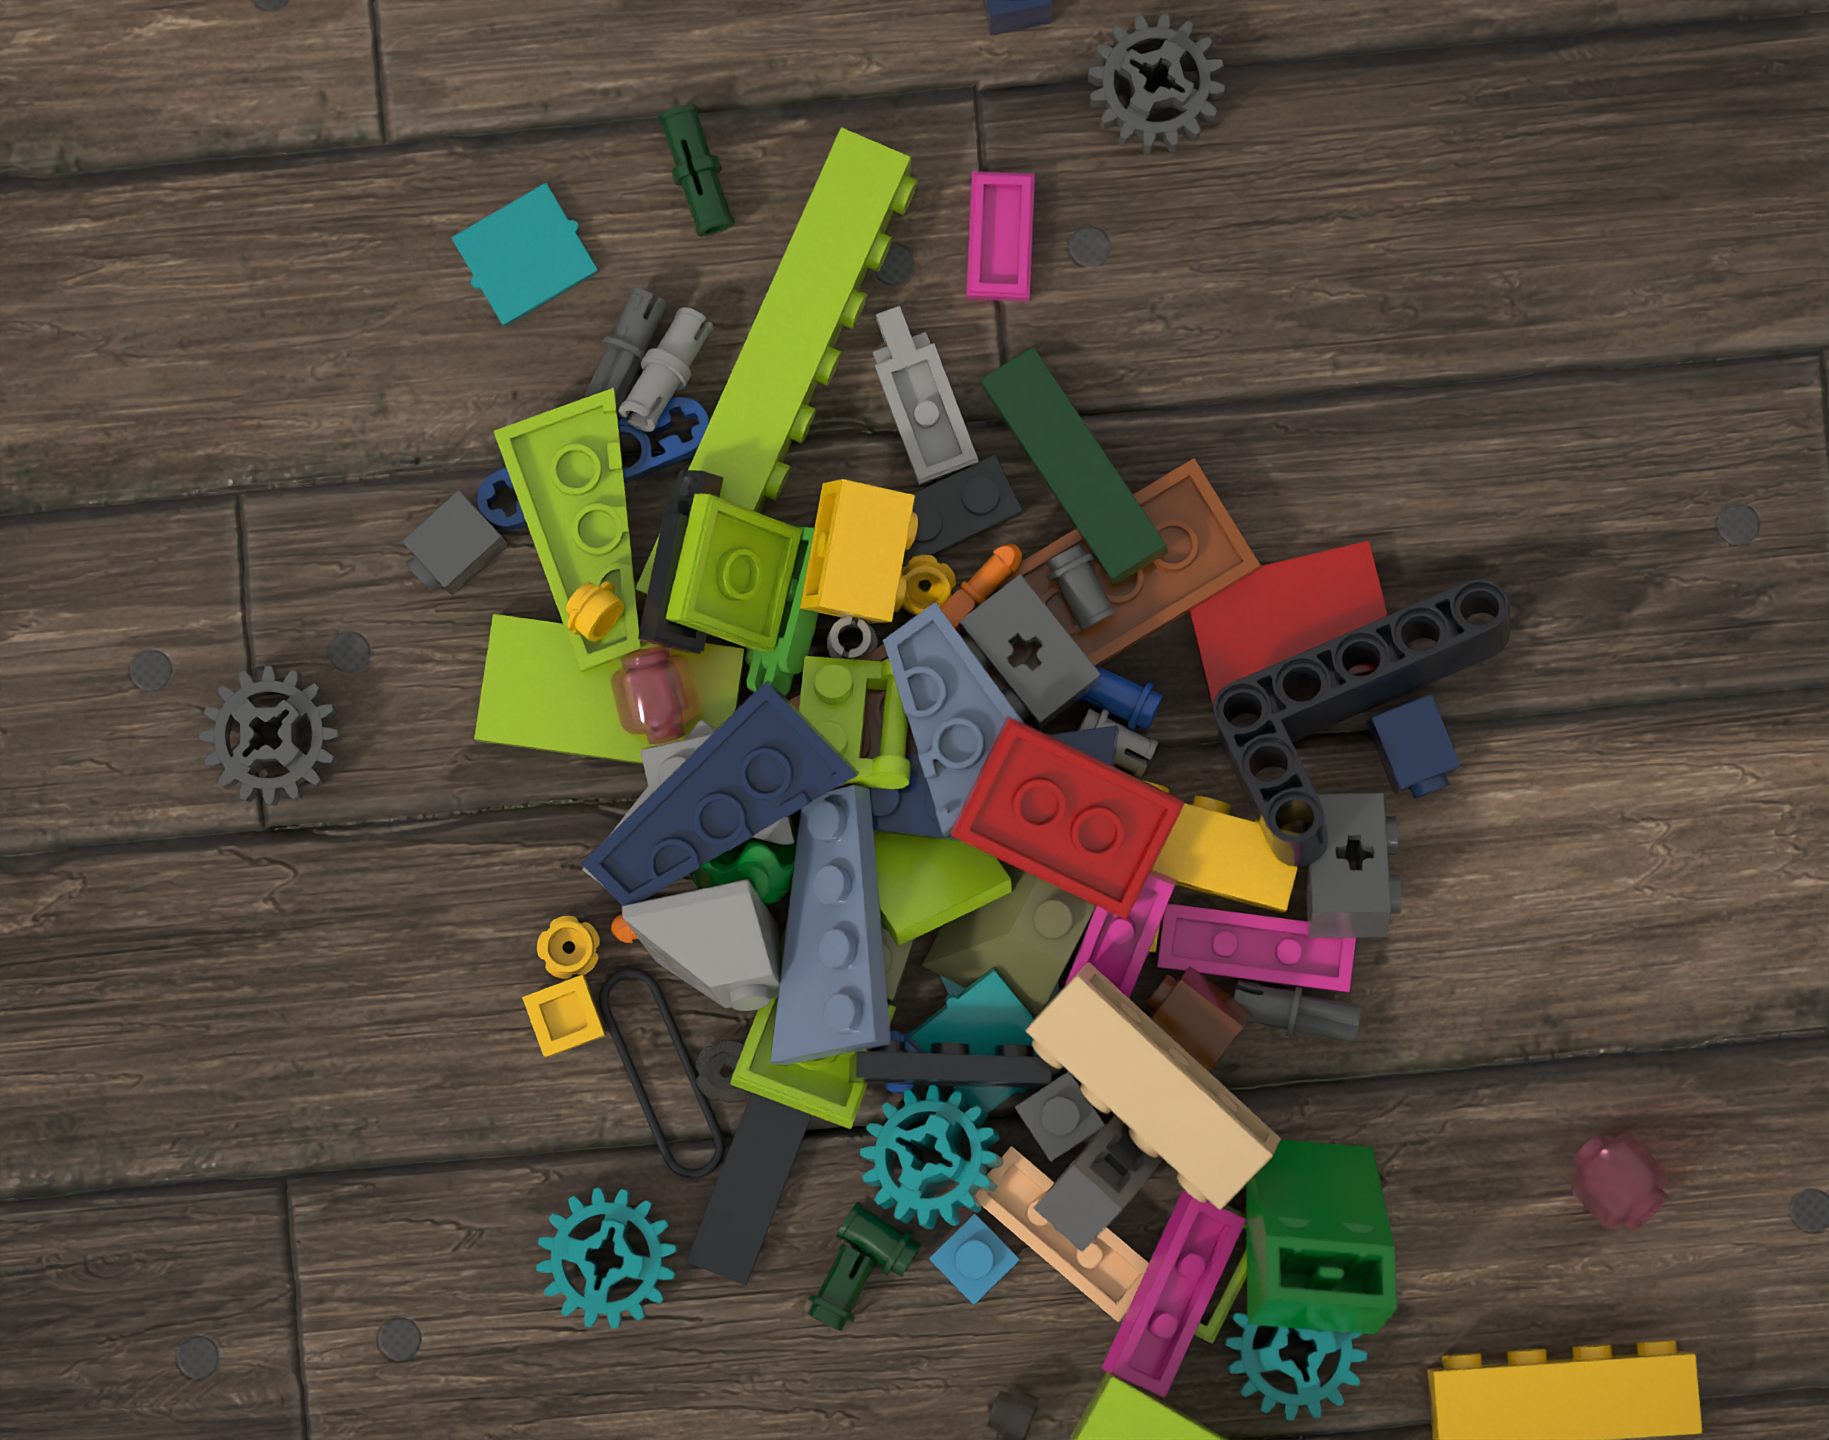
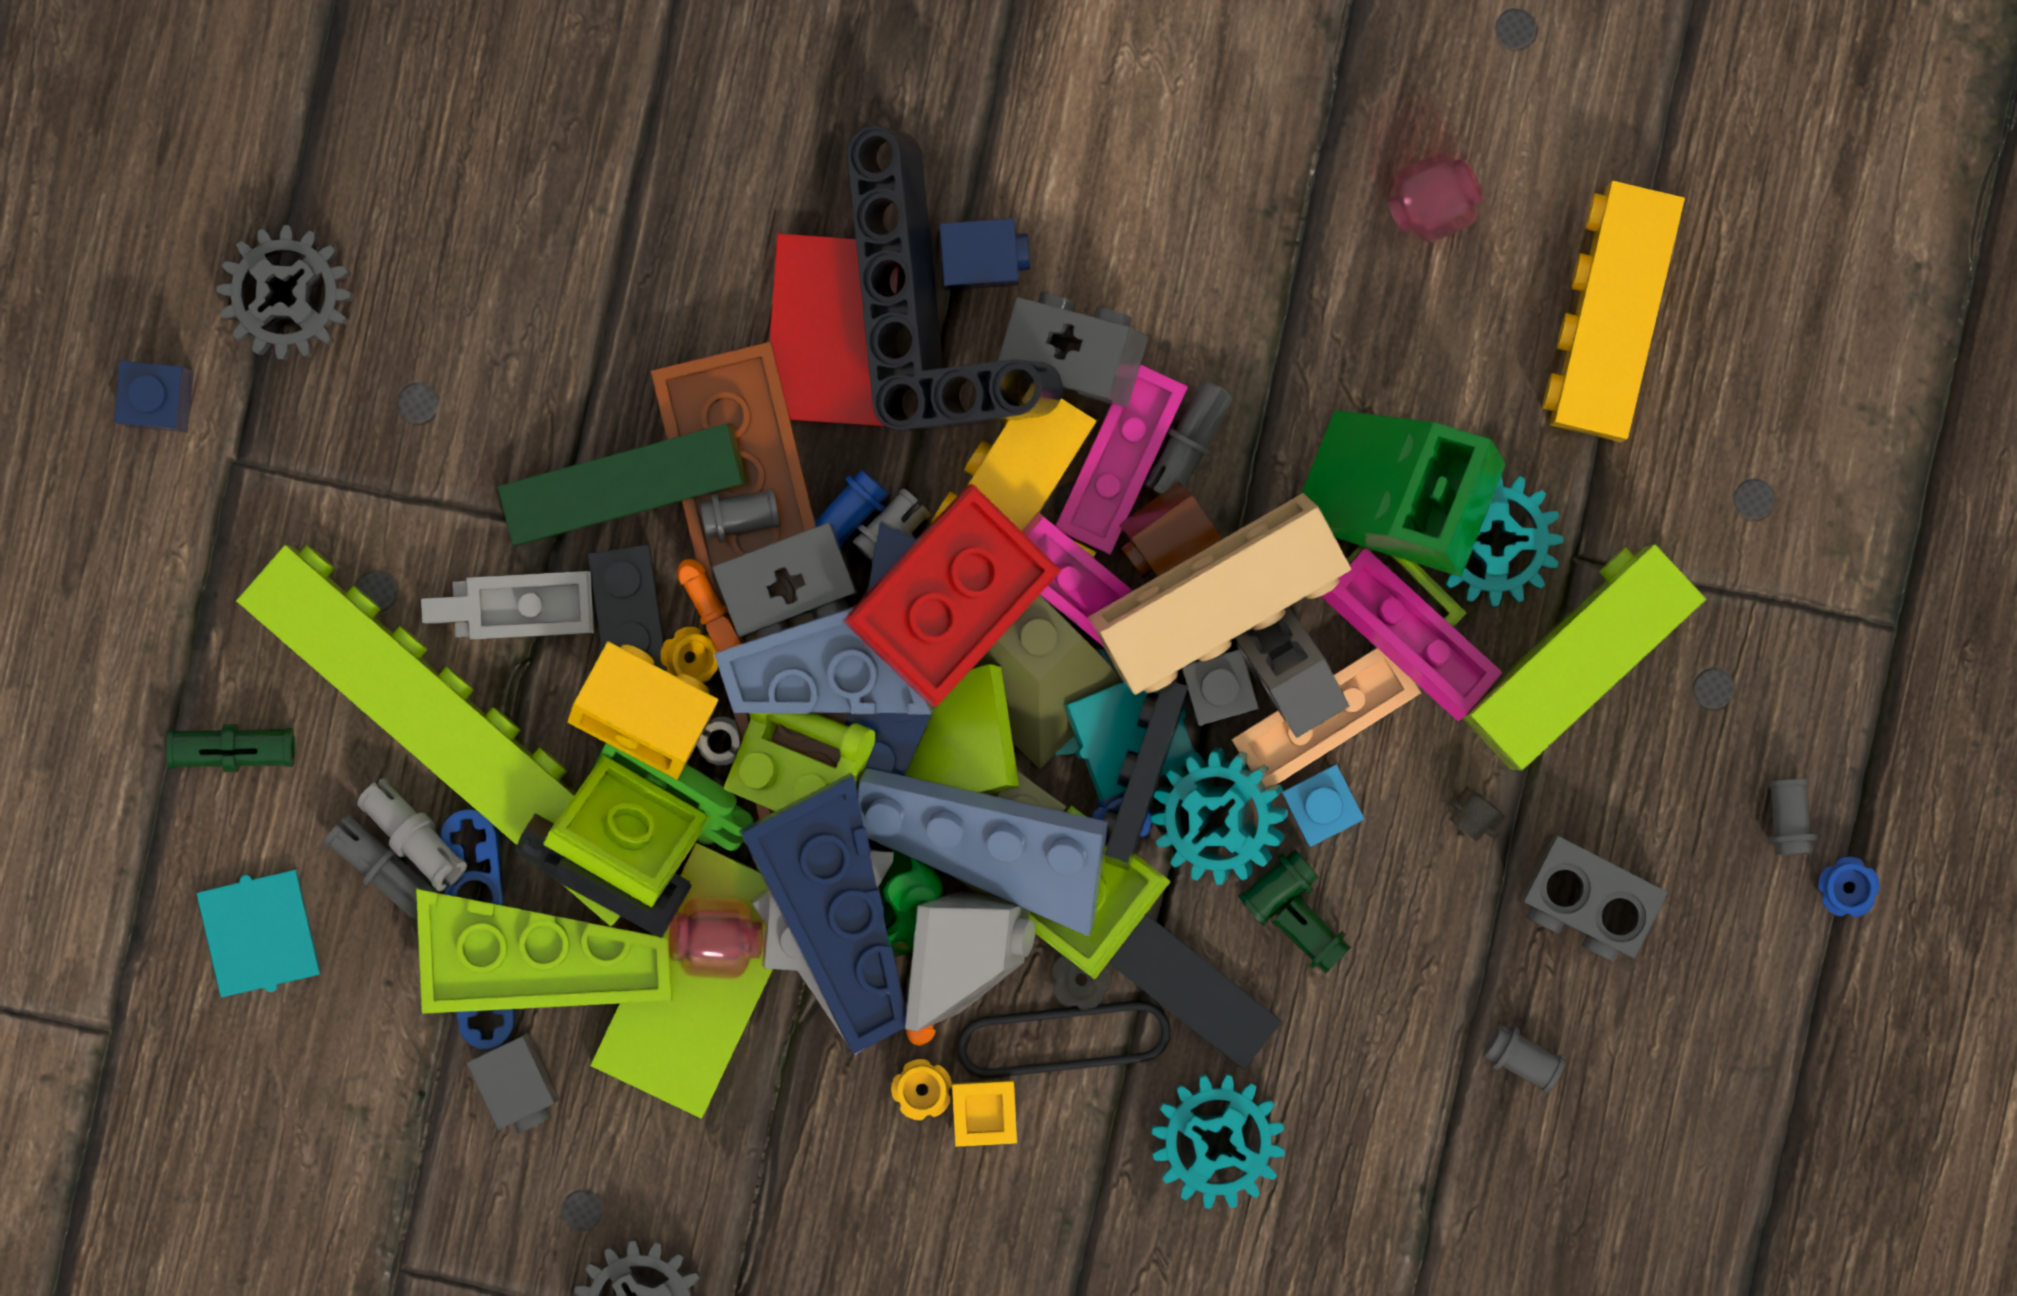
camera: 75 degrees left, 5 degrees up
(594, 610) = (621, 970): yellow plate -> none
(1000, 236) = (383, 483): dark pink tile -> none

